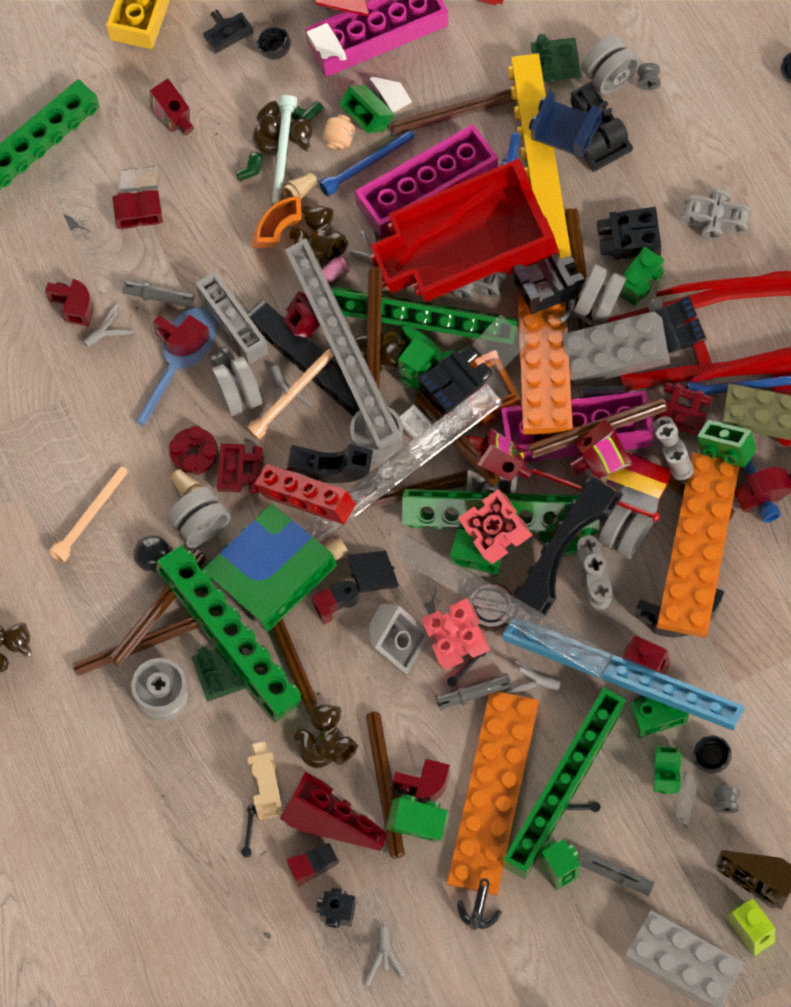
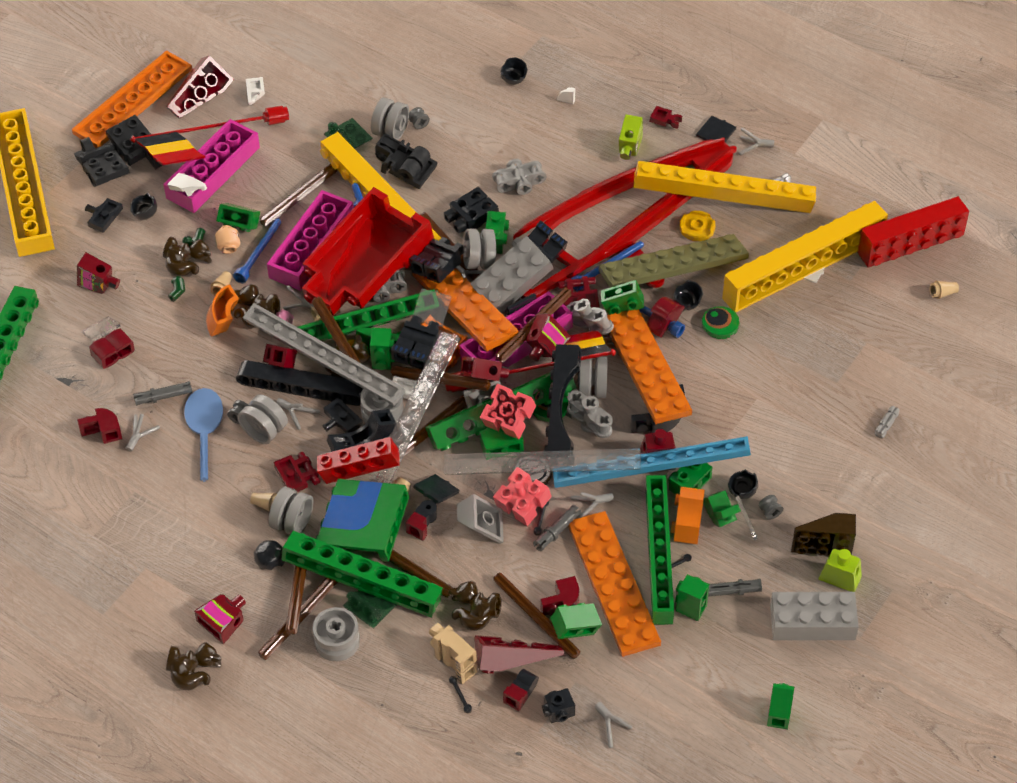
camera: 35 degrees left, 15 degrees down
(60, 600) = (221, 616): none -> dark red torso
(61, 550) = (200, 585): light nougat piece -> none
(182, 340) = (200, 411): dark red brick -> none
(192, 463) = (255, 468): dark red plate -> none
(232, 318) = (226, 380): light grey brick -> none
(259, 426) = (293, 440): light nougat piece -> none
(287, 104) = (182, 233): light aqua piece -> none
(326, 425) = (341, 417): none -> black plate
(391, 93) = (247, 200): white slope -> none
(475, 920) = (659, 663): black piece -> none
(564, 126) = (386, 165): dark blue panel -> none
(625, 759) = (689, 515): none -> orange brick

